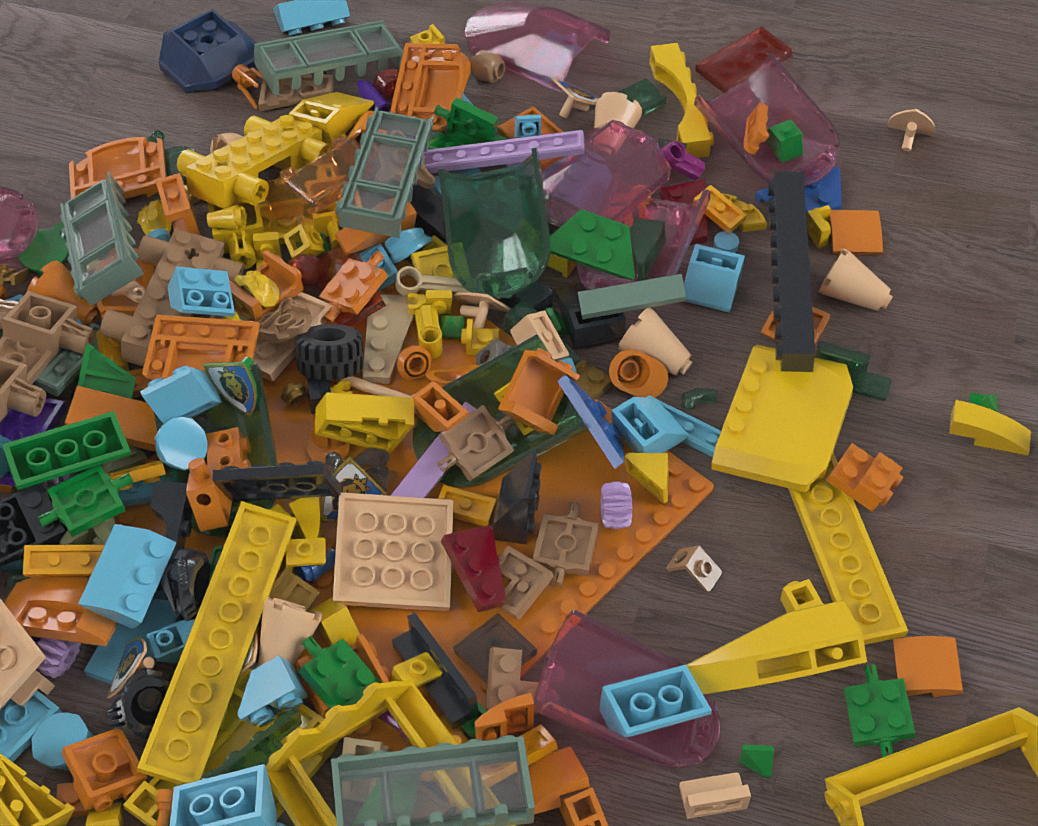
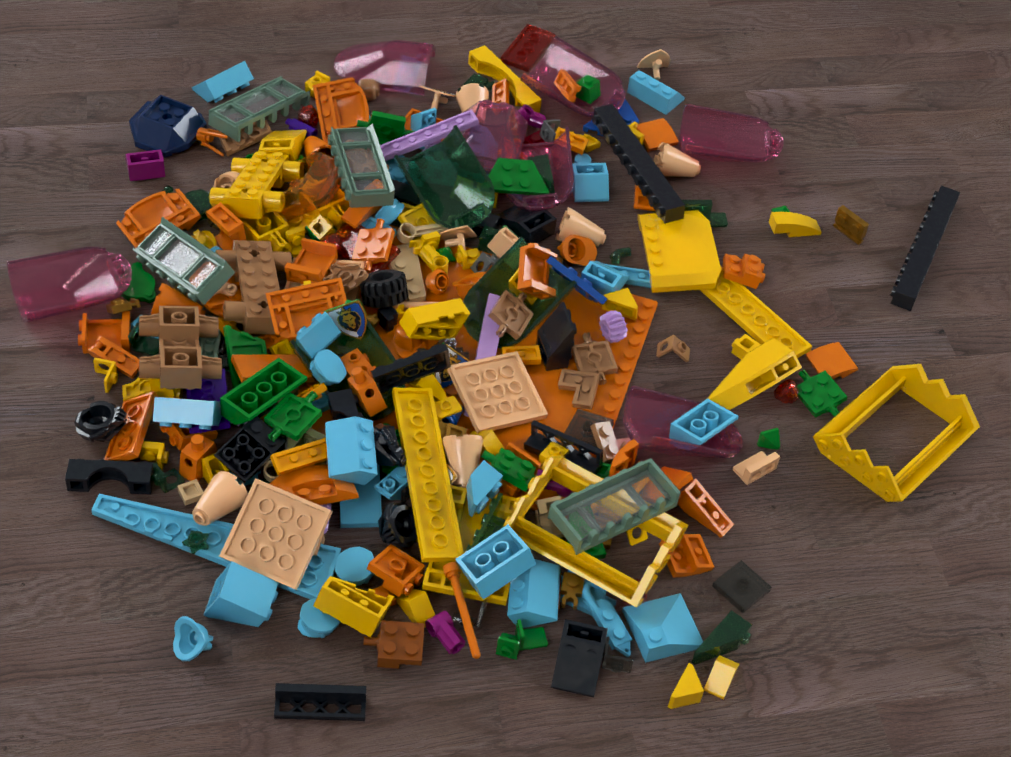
camera: 30 degrees left, 5 degrees down
(130, 662) = (373, 506): shield -> none
(147, 96) = (145, 165): none -> magenta slope
(200, 291) = (284, 272): medium azure slope -> none
(229, 218) = (265, 224): yellow cone -> none
(259, 287) = (312, 260): yellow hat -> none
(438, 408) = (481, 299): orange slope -> none
(477, 565) = (553, 384): dark red wing -> none
(632, 296) = (556, 202): sand green tile -> none
(663, 117) = (500, 91): none -> orange plate
(690, 189) = (547, 132): none -> dark grey bracket
(826, 692) = (787, 392): none -> clear red cone
(888, 169) = (653, 92): none -> medium azure slope
(957, 265) = (727, 136): none -> clear pink windscreen

